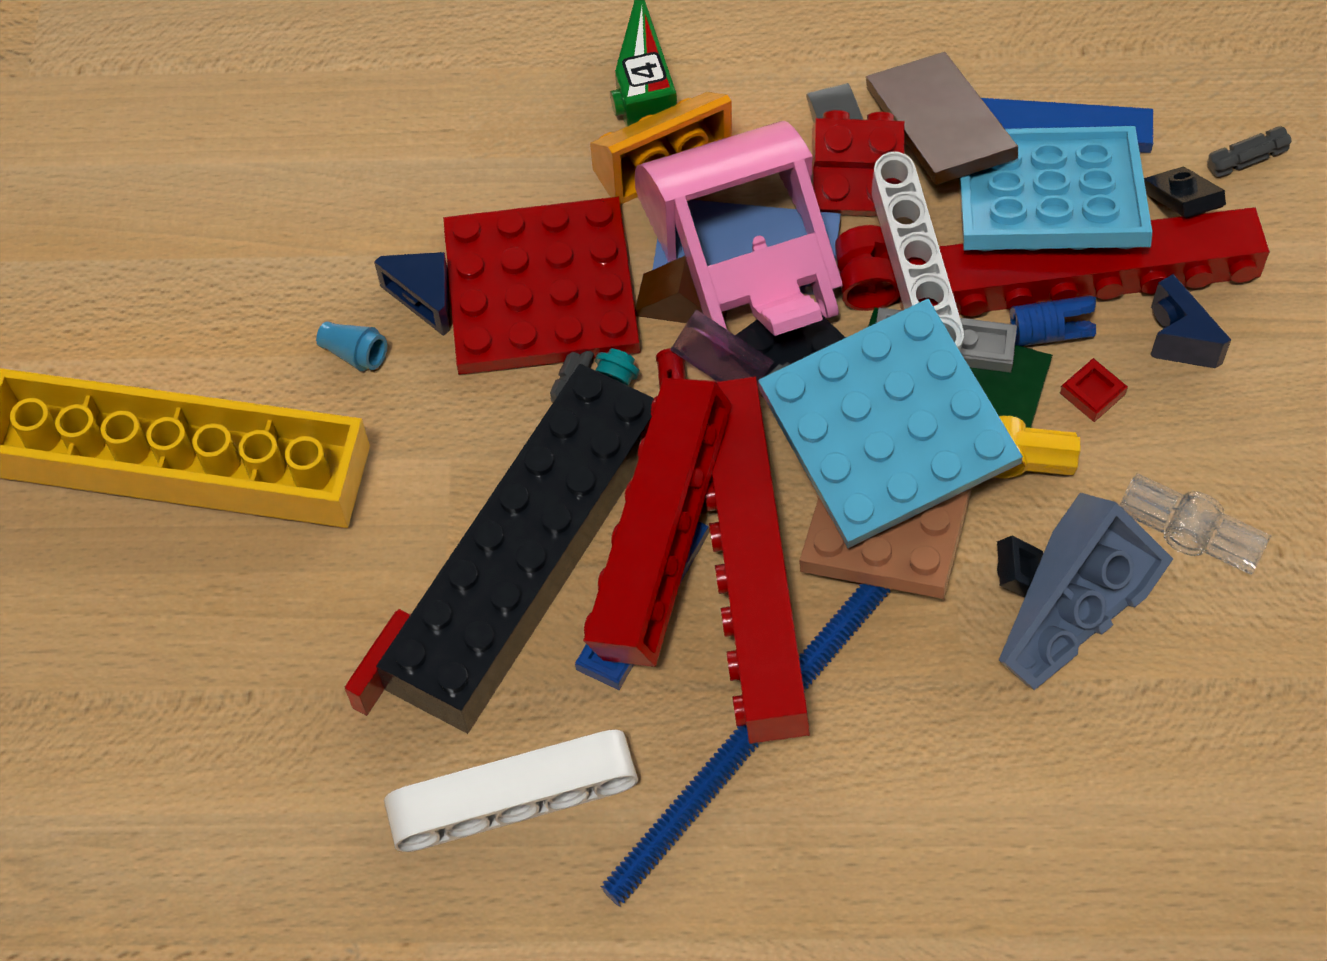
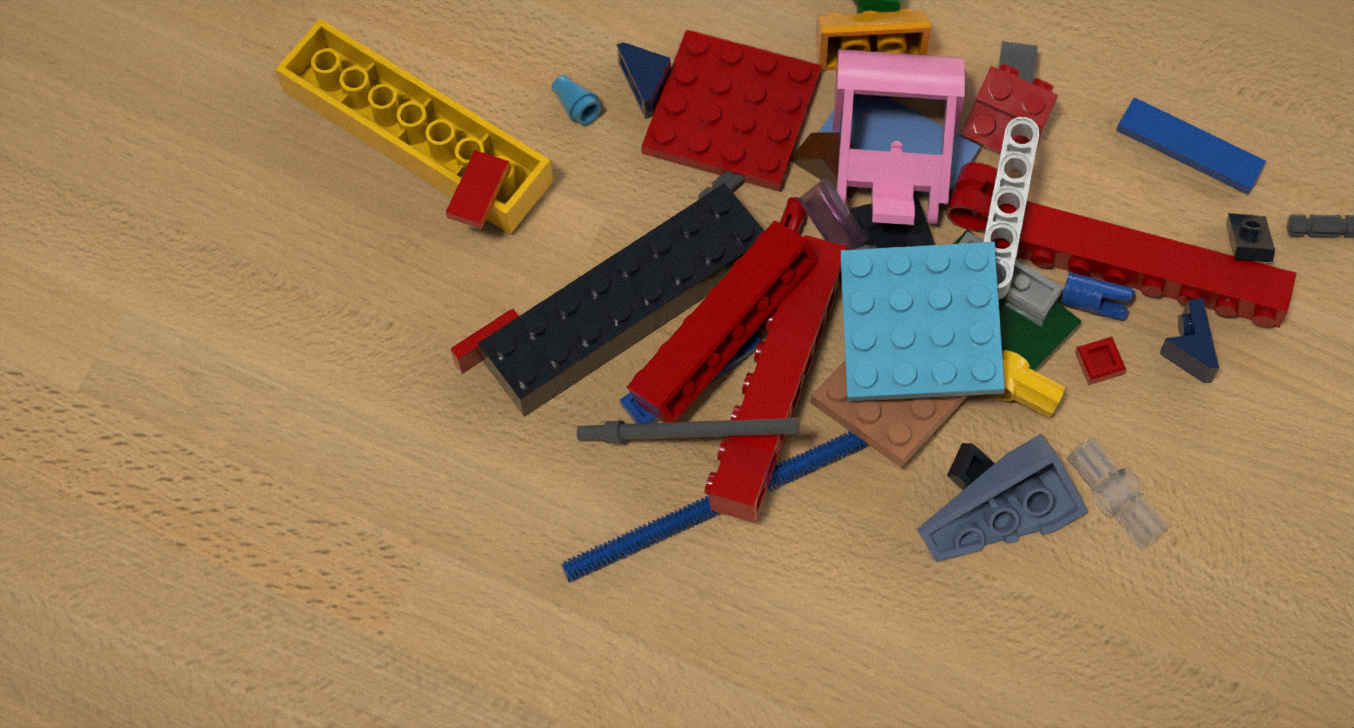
camera: 25 degrees right, 5 degrees up
(291, 486) = (477, 189): none -> red tile
(510, 790) = (532, 469): white beam -> none
(592, 700) = (617, 431): none -> dark grey bar
(617, 366) = (754, 196): teal plate -> none
(942, 118) = (1093, 102): tile -> none
(1061, 192) = (1146, 193): medium azure plate -> none

